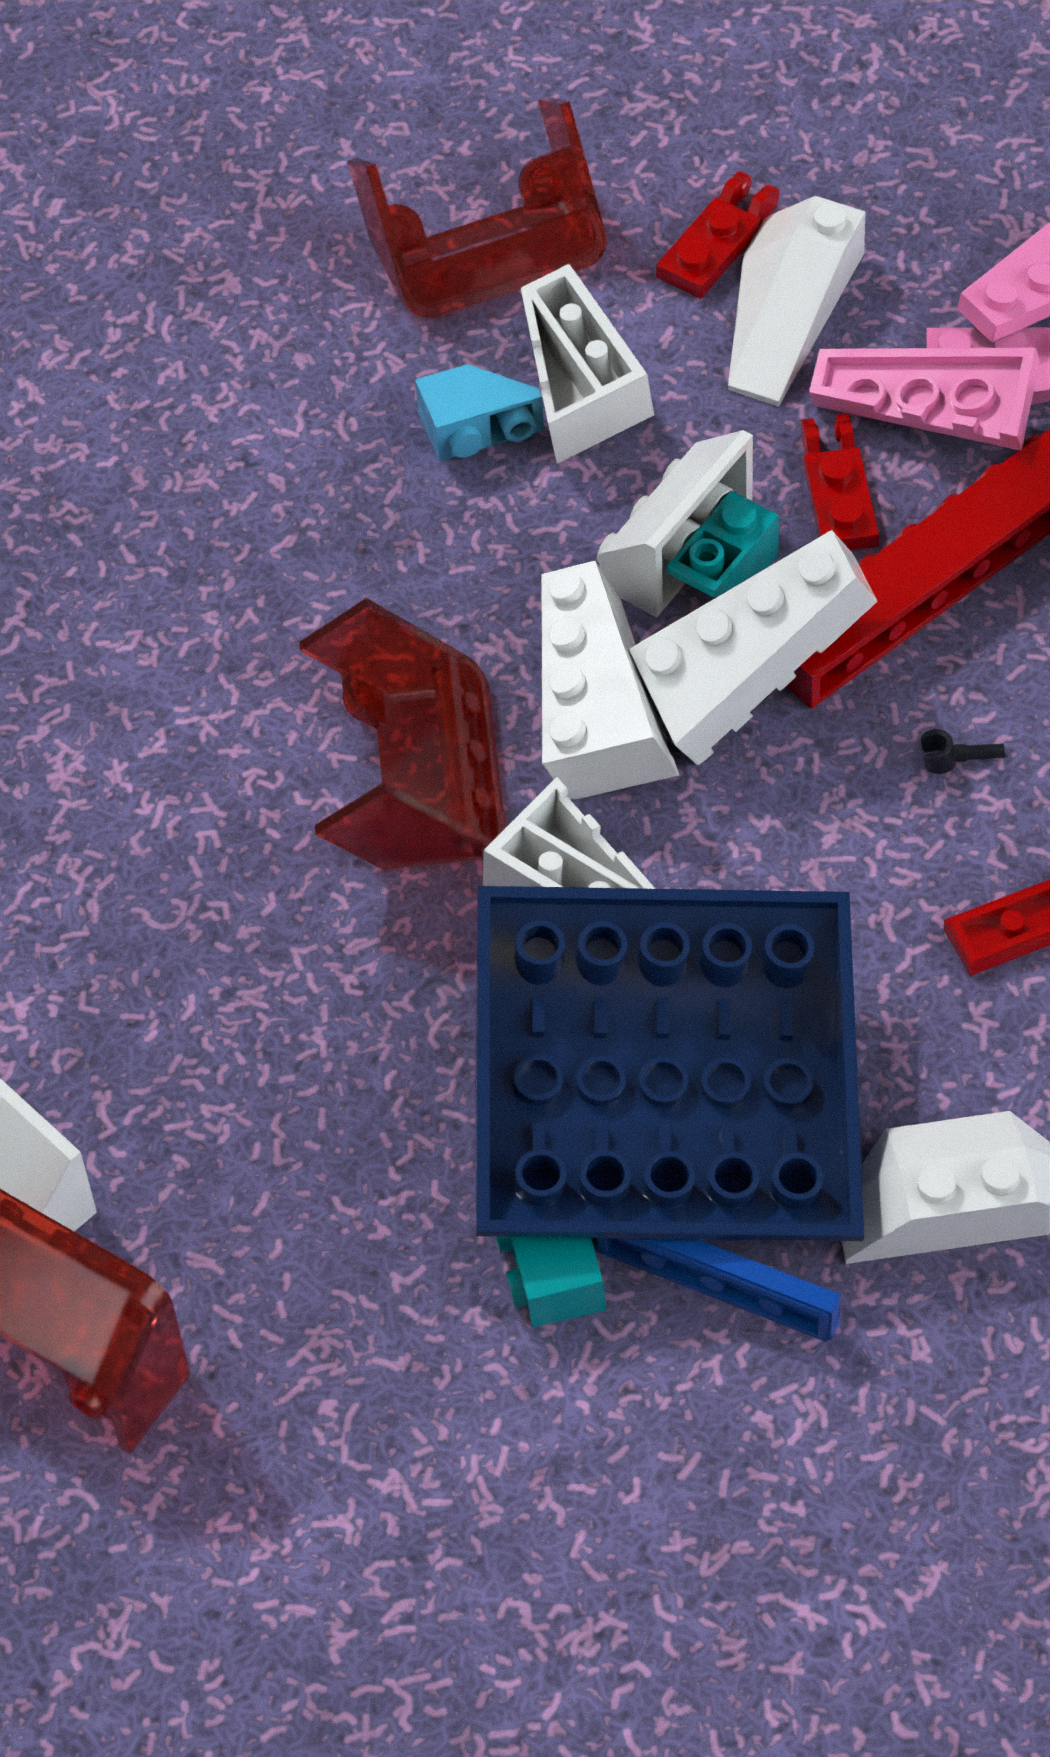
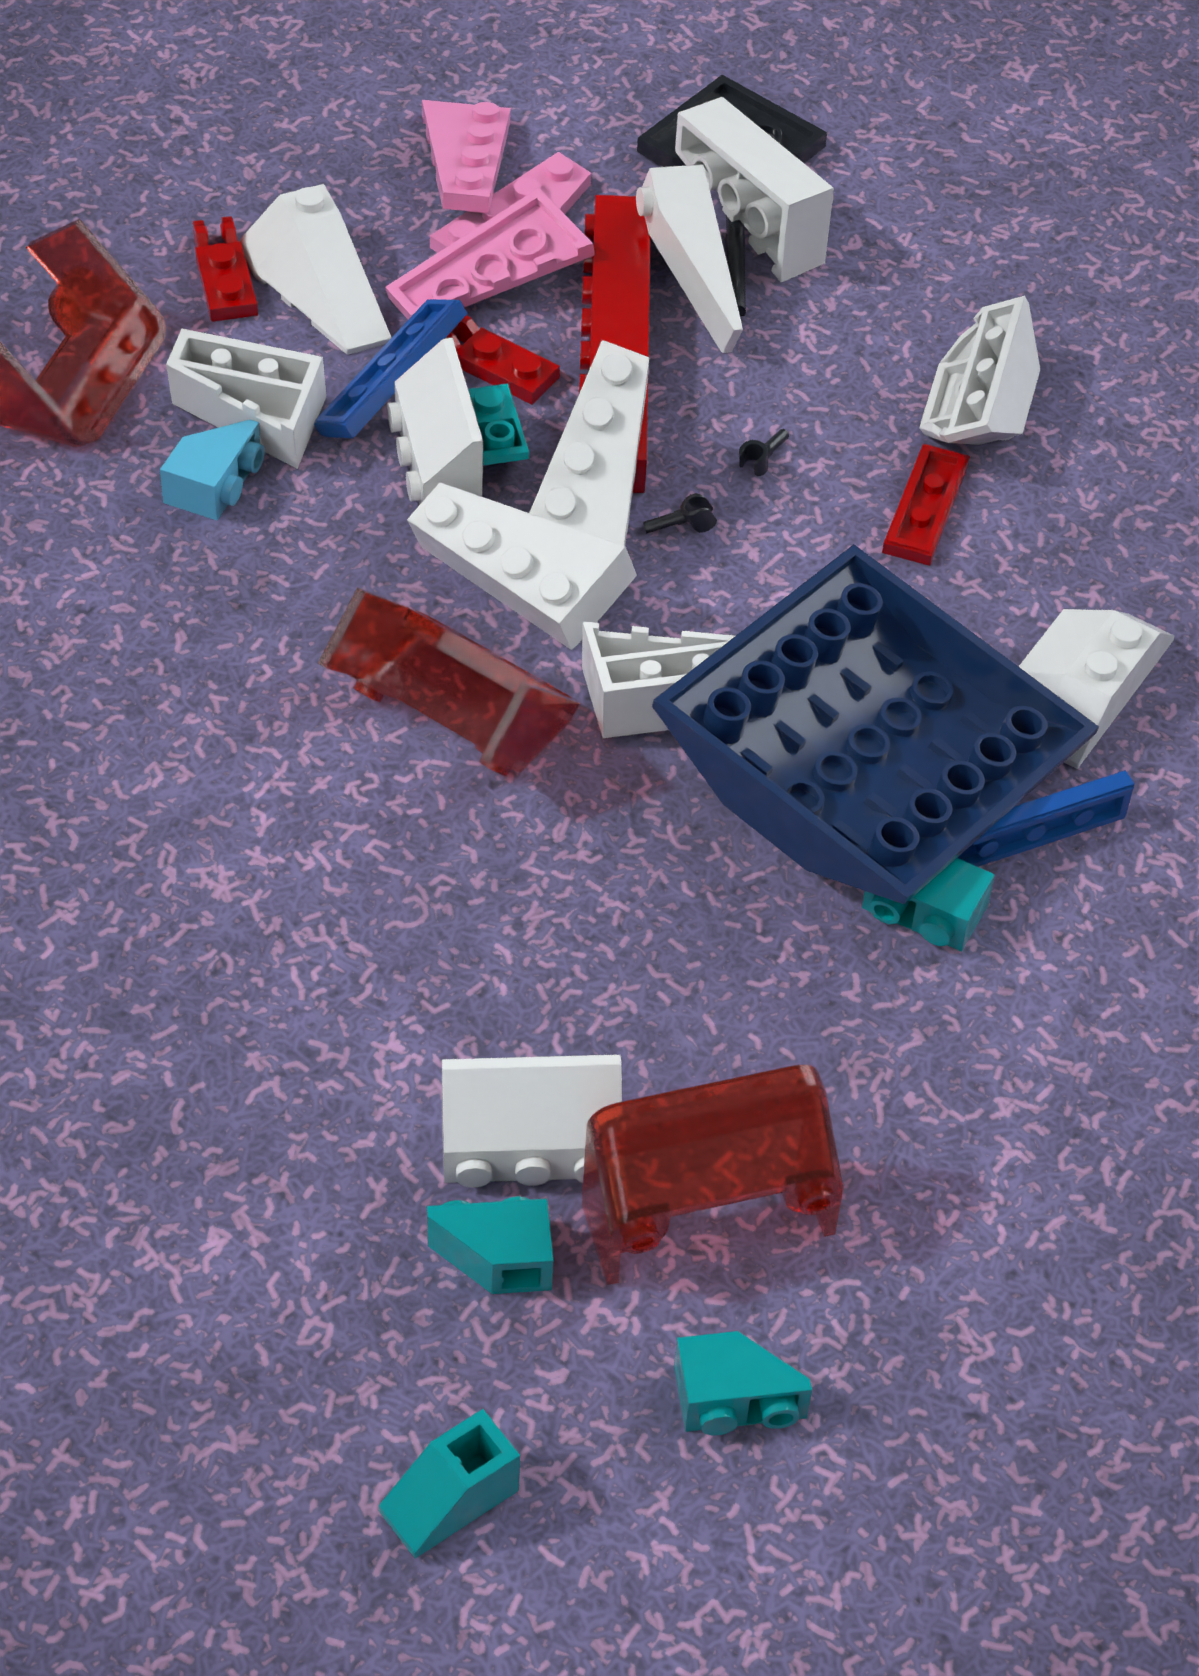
camera: 55 degrees left, 5 degrees down
(761, 418) = (376, 381): none -> blue tile
(814, 756) = (693, 509): none -> black hand

